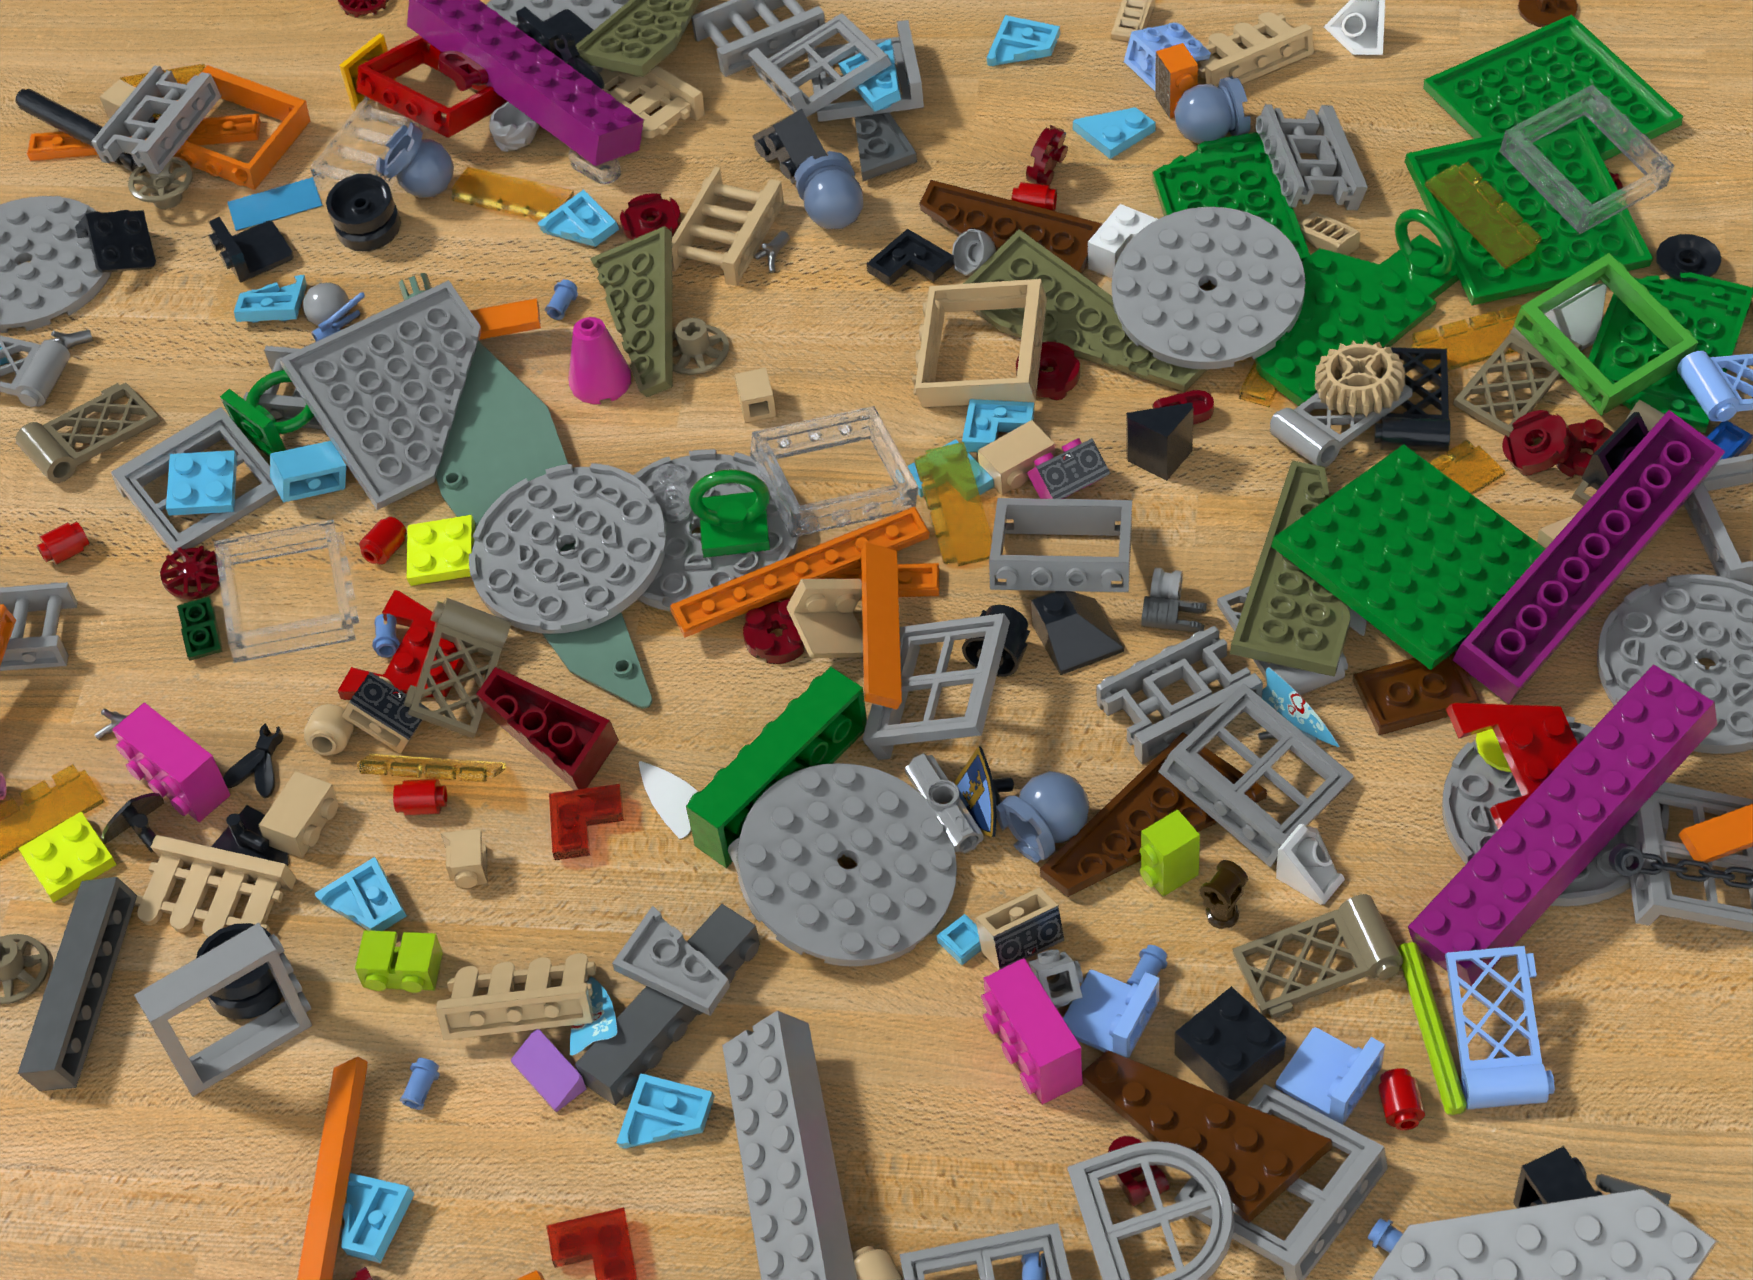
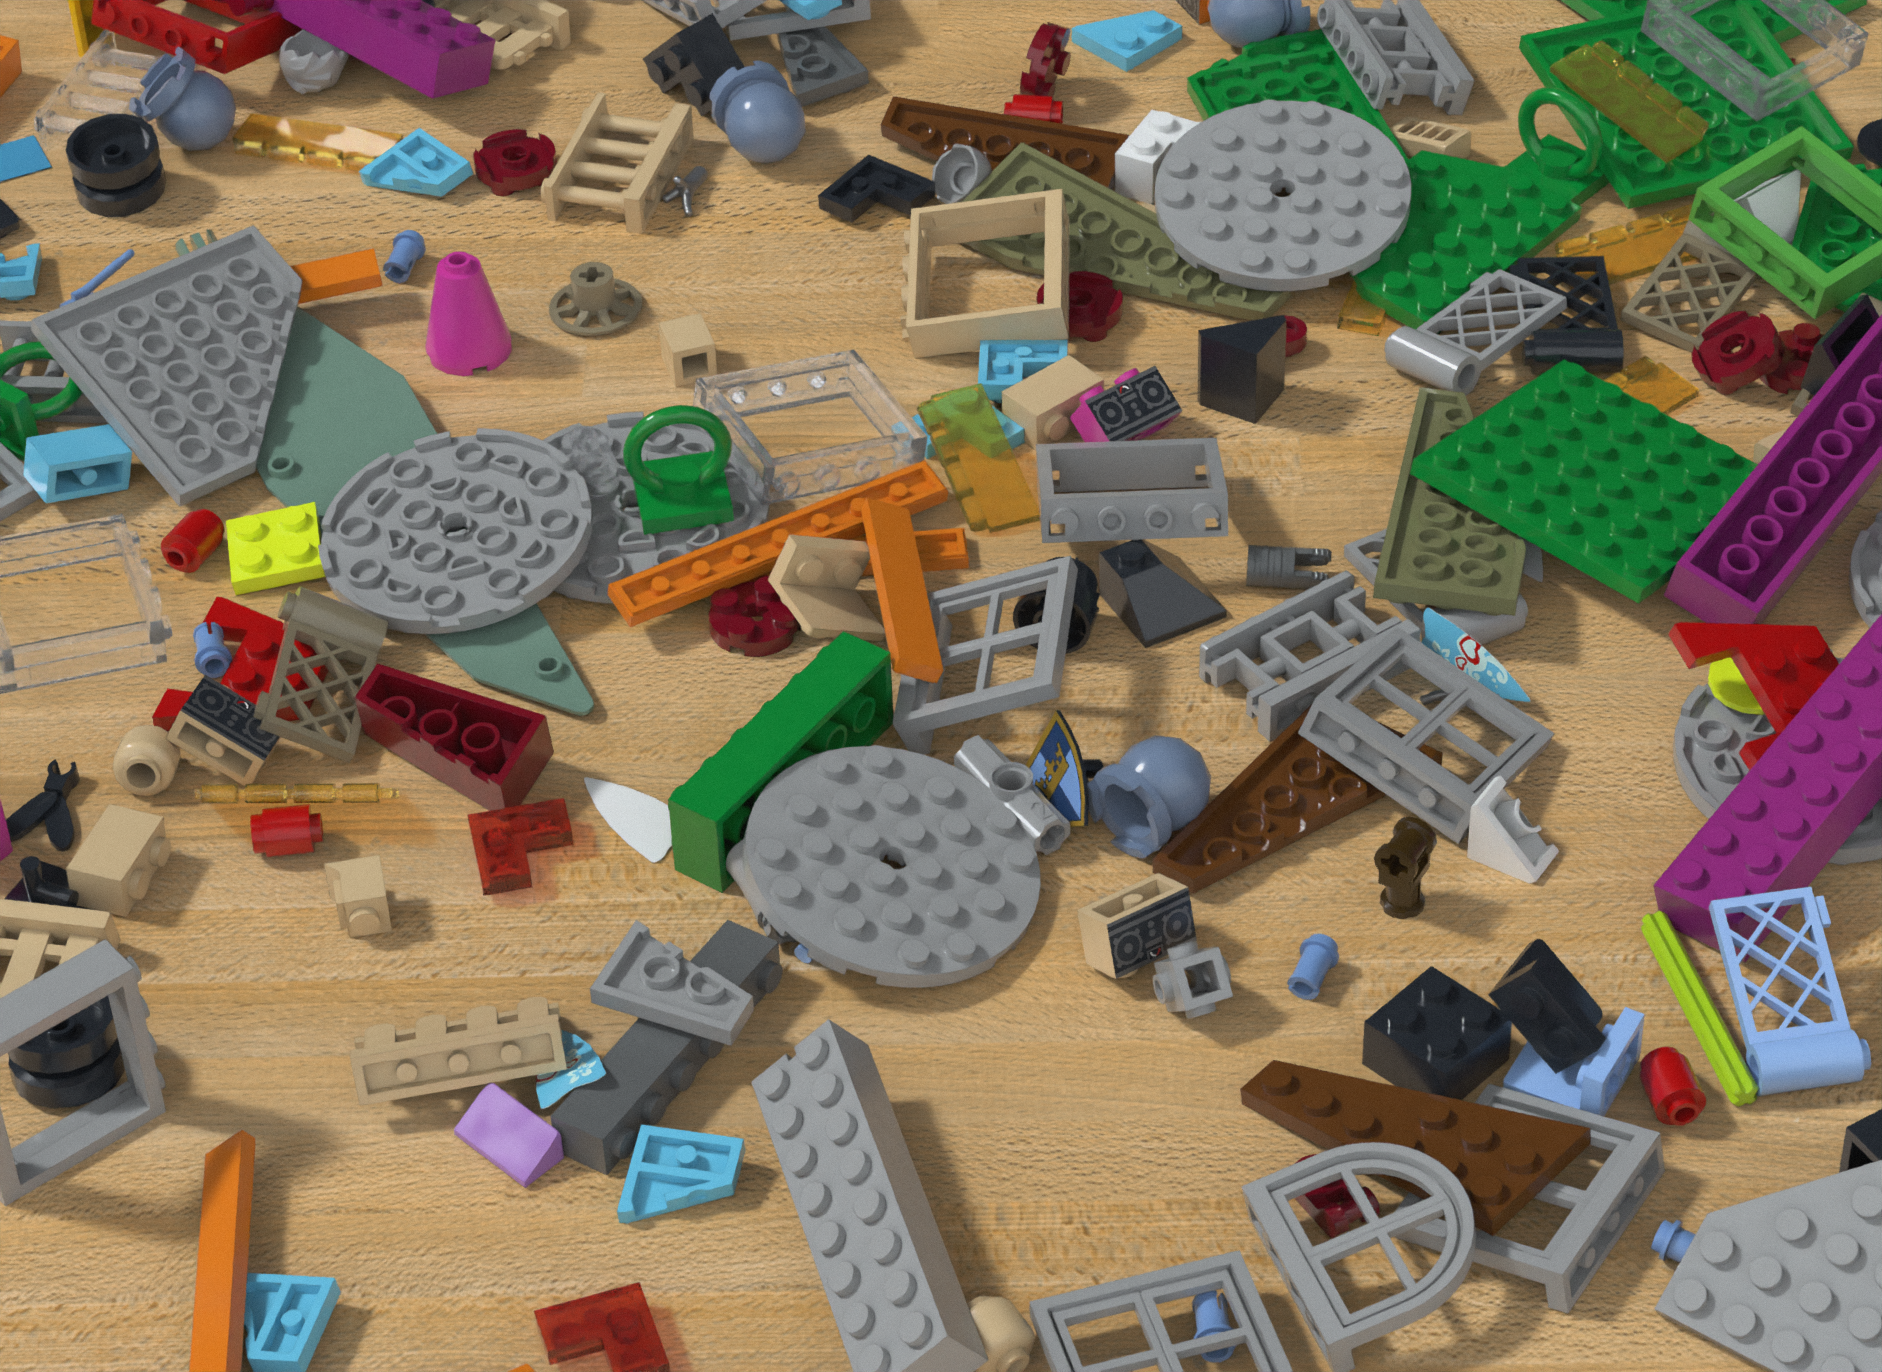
camera: 10 degrees left, 10 degrees down
(323, 302) = (71, 270): light grey hair -> none
(364, 897) = (222, 953): medium azure wing -> none
(407, 967) = (298, 1032): lime piece -> none
(419, 1084) = (334, 1152): medium blue pin -> none
(603, 173) = (442, 111): clear plate -> none
(640, 302) = (517, 240): olive wing -> none
(960, 939) = (1056, 951): medium azure tile -> none
(1032, 1032) = (1172, 1037): dark pink brick -> none
(1112, 1012) = (1272, 1017): light blue bracket -> none
(1166, 584) = (1274, 530): light grey wheel -> none
(1169, 853) = (1326, 825): lime piece -> none
(1315, 1030) = (1549, 1007): none -> black bracket
(1359, 383) = (1497, 285): tan gear -> none
(1365, 941) = (1586, 897): dark tan piece -> none
(1411, 693) = (1612, 638): reddish brown tile -> none

